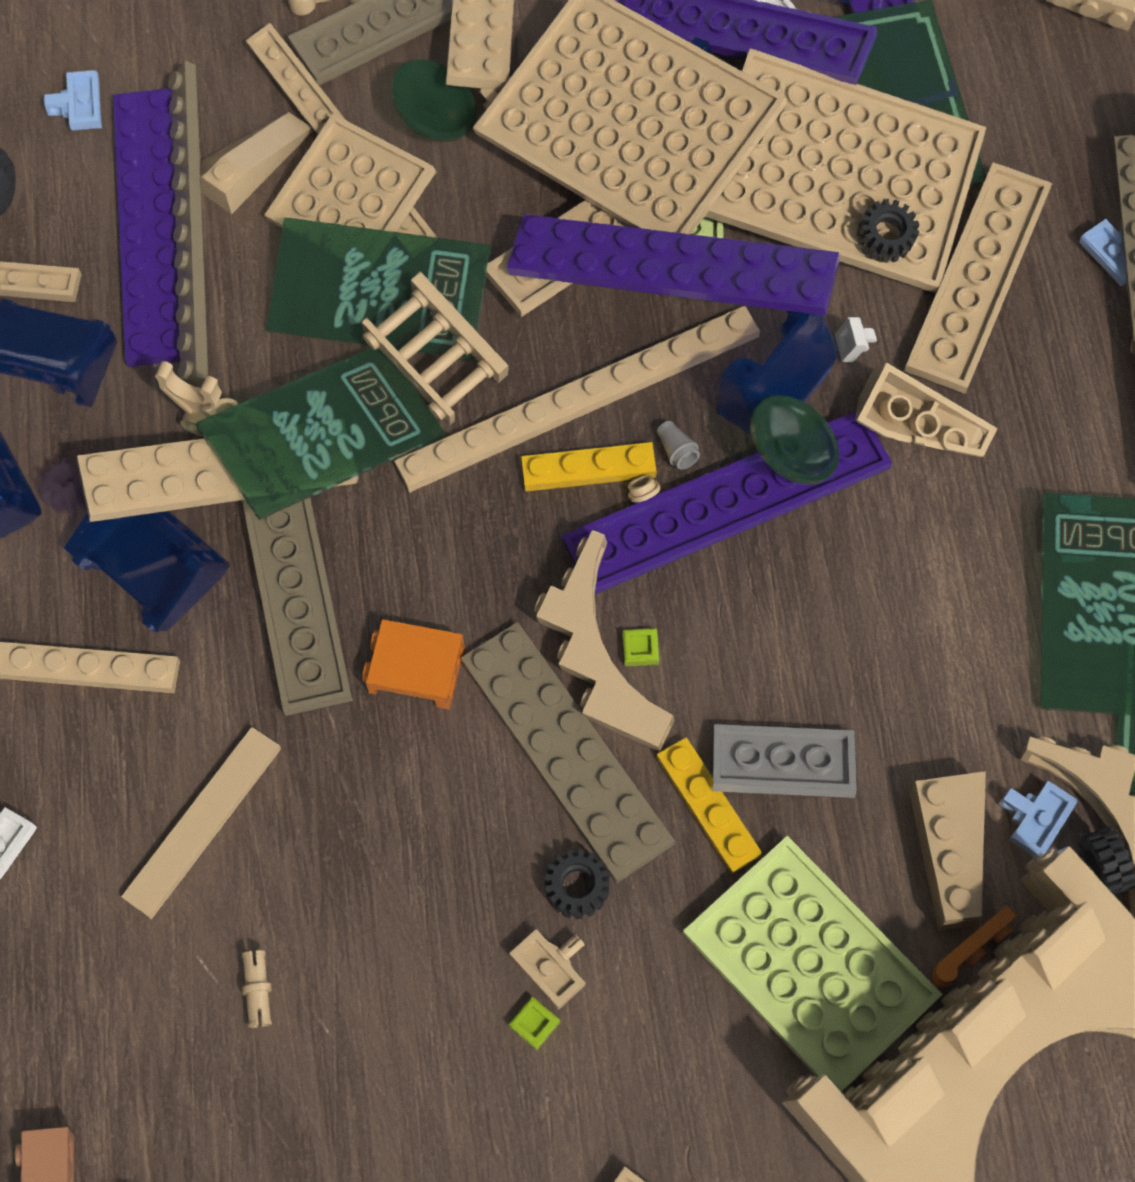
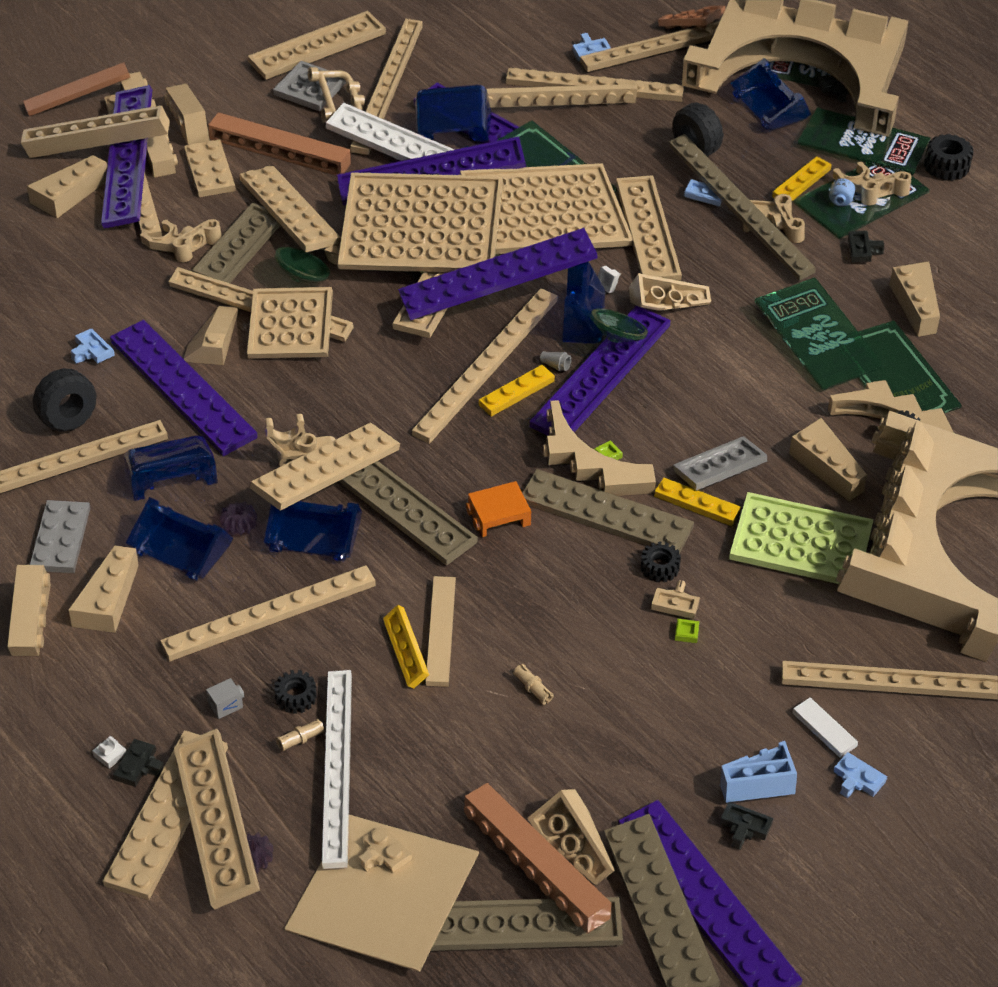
camera: 35 degrees left, 20 degrees down
(132, 825) = (405, 646): none -> yellow plate
(188, 229) = (207, 369): dark tan plate -> none
(319, 431) = (365, 427): clear green piece -> none
(342, 274) = (340, 358): clear green piece -> none
(445, 319) = (401, 353): tan fence -> none
(643, 488) = (554, 385): tan plate -> none
(896, 216) = (600, 219): black tyre -> none
(972, 948) = (872, 496): orange plate -> none
(1038, 816) = (858, 431): light blue hinge -> none

